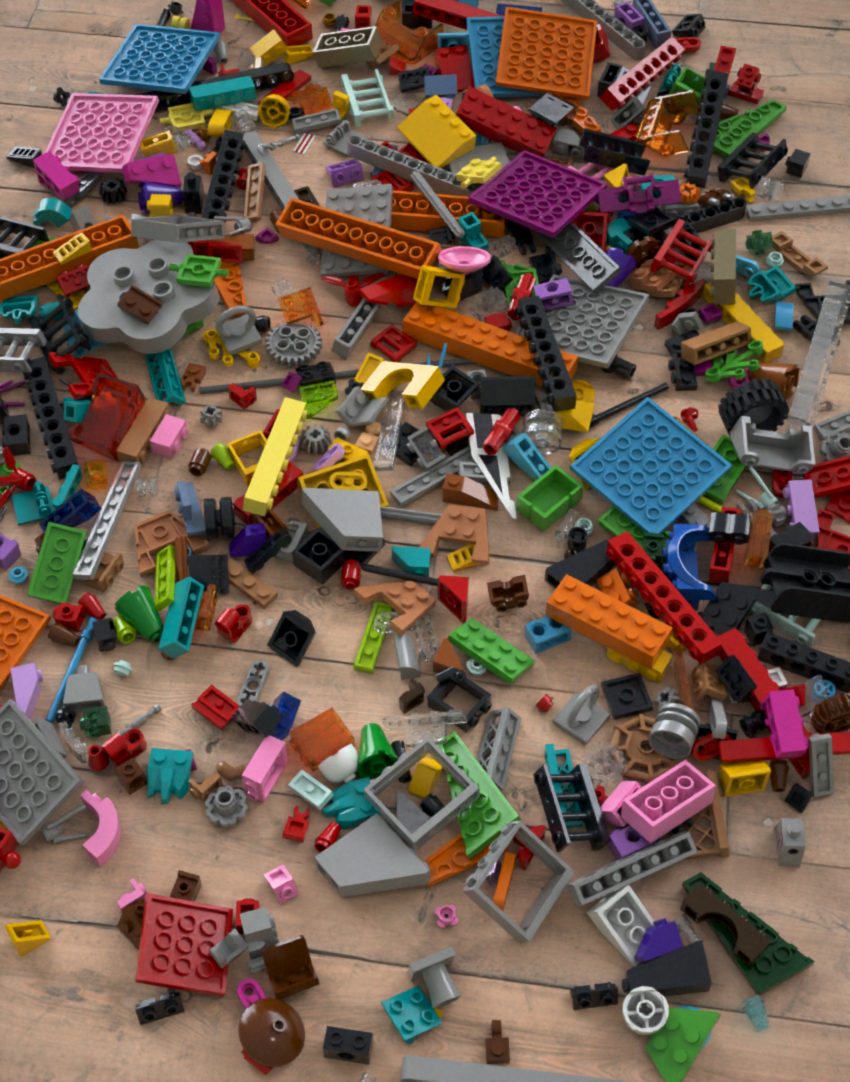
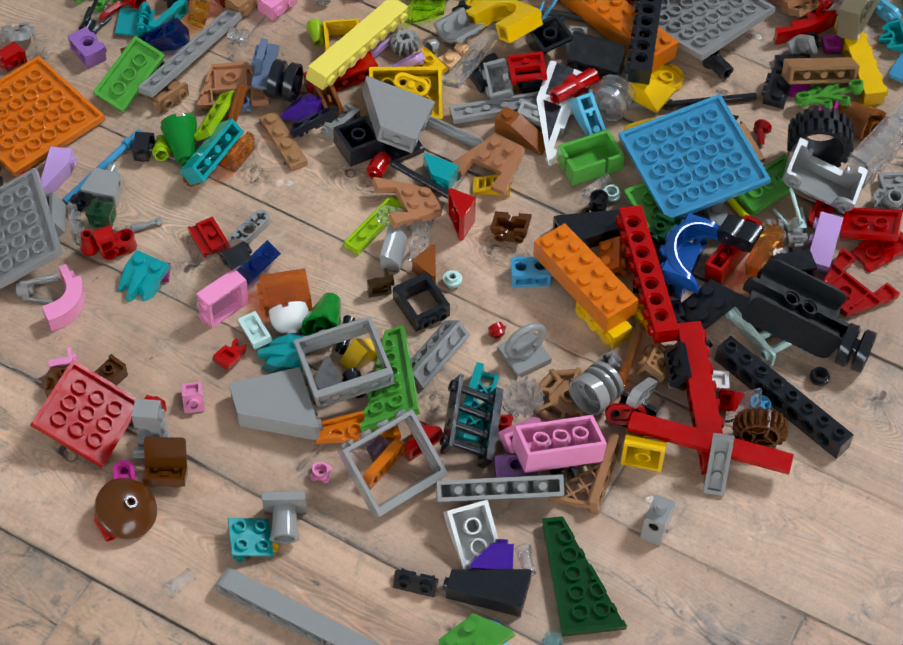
camera: 20 degrees right, 0 degrees up
(18, 579) = (95, 75): medium azure plate -> none
(62, 635) = (107, 135): reddish brown cone -> none
(69, 616) = (121, 122): red brick -> none
(92, 606) = (143, 119): red cone -> none
(122, 668) = (144, 179): light aqua plate -> none
(131, 776) = (109, 267): reddish brown brick -> none
(153, 1010) = (45, 458): black hinge -> none
(199, 462) = (293, 29): reddish brown brick -> none
(209, 785) = (168, 299): medium nougat bracket -> none
(210, 570) = (258, 122): black hinge -> none
(226, 806) = (177, 319): light grey plant -> none
(228, 949) = (121, 431): light grey panel -> none
(229, 771) = (191, 290): medium nougat arm -> none
(231, 624) = (256, 172): red piece -> none
(292, 636) = (301, 199): black slope -> none
(327, 837) = (251, 371): red cone -> none
(348, 1045) = (184, 542): black brick -> none
(429, 725) = (383, 312): clear bracket -> none
(451, 674) = (422, 275): black arm -> none
(491, 650) = (470, 269): bright green plate -> none
(497, 1047) = (311, 592): reddish brown plate -> none
(626, 696) = (574, 348): black plate -> none
(645, 1010) = (450, 607): white cylinder -> none
(704, 906) = (548, 542): dark brown arch -> none
(752, 724) = (677, 411): black wheel -> none
(757, 627) = (725, 328): black brick -> none
(778, 774) = (680, 459): reddish brown cone -> none
(785, 723) = (698, 414): dark pink wedge -> none
(799, 797) = (687, 487): black tile -> none

